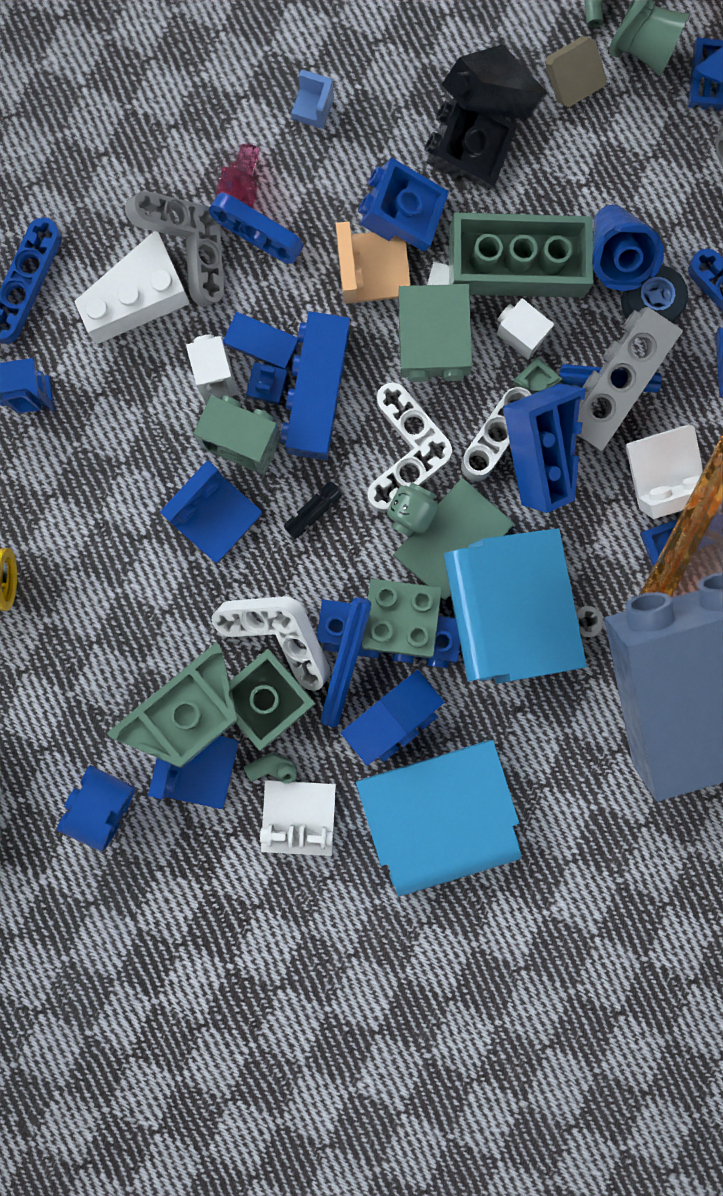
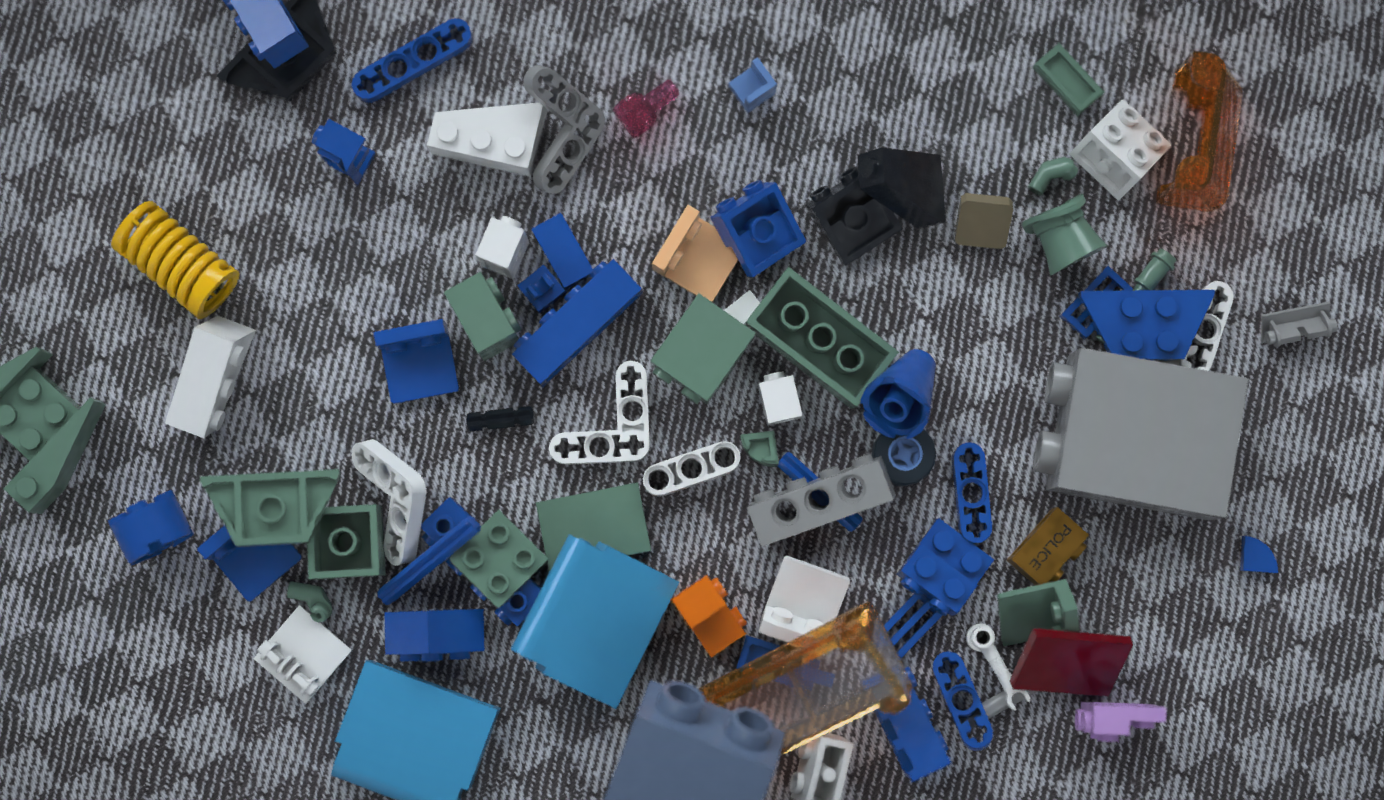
camera: 35 degrees right, 0 degrees up
(50, 651) = (209, 375): none -> white wedge
(256, 228) = (626, 157): blue beam -> none
(412, 509) = (576, 479): sand green head -> none
(543, 445) = (716, 506): blue wedge -> none
(596, 621) = (645, 661): light grey bush -> none
(601, 536) = (709, 615): none -> orange brick

